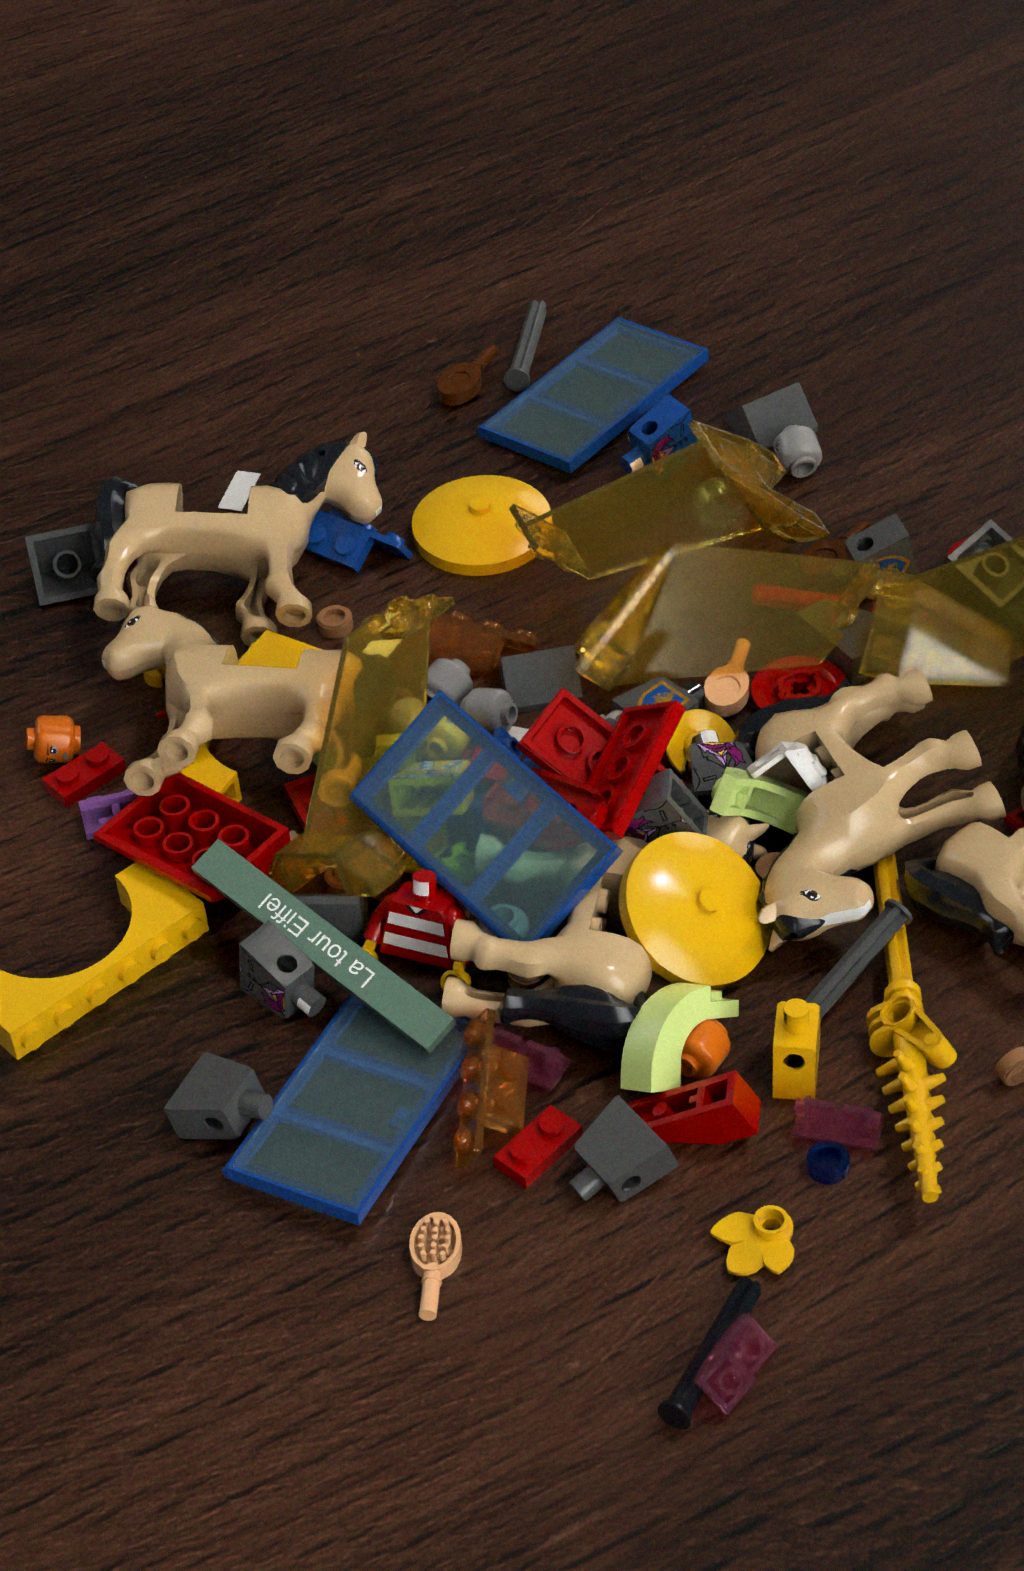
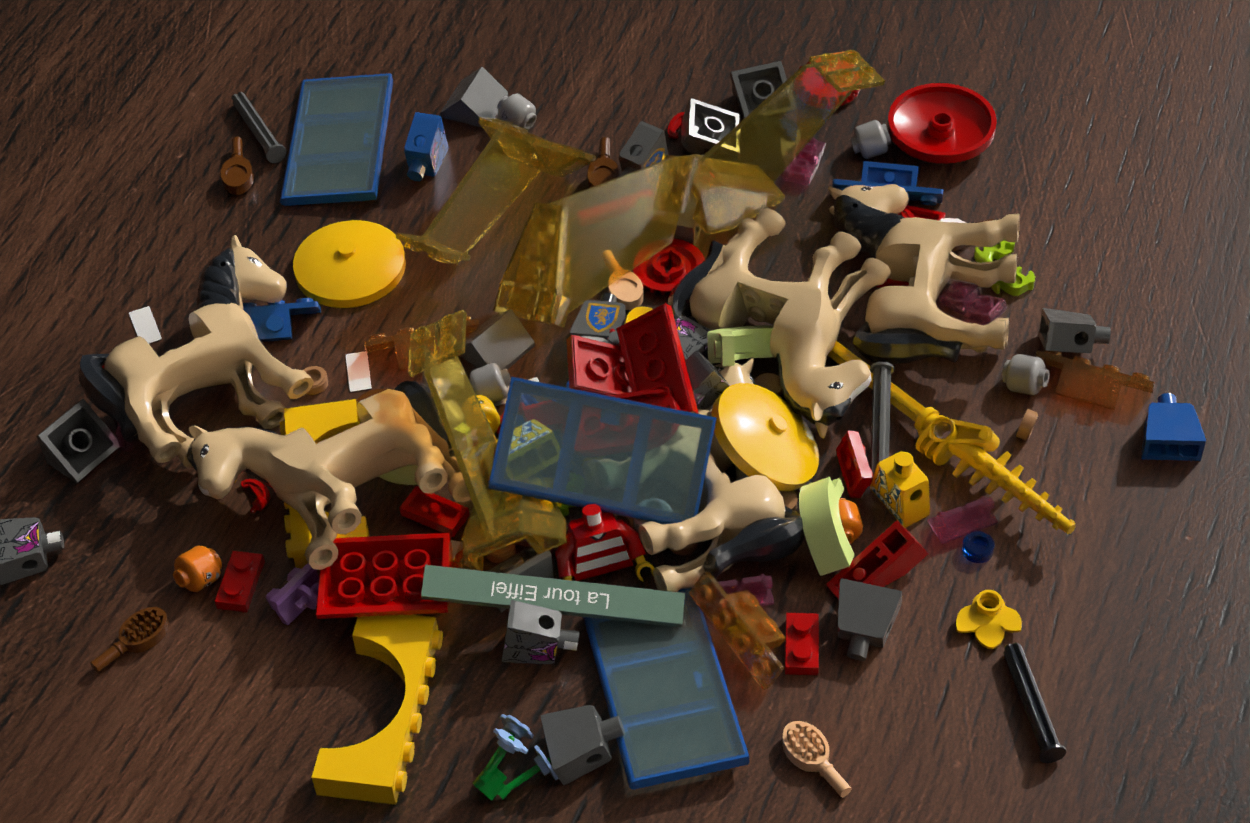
camera: 40 degrees left, 5 degrees up
(109, 1087) = (491, 779): none -> plant
(733, 1362) = (1051, 693): clear pink slope -> none
(786, 987) = (854, 464): none -> red plate
(801, 758) = (749, 308): white piece -> none

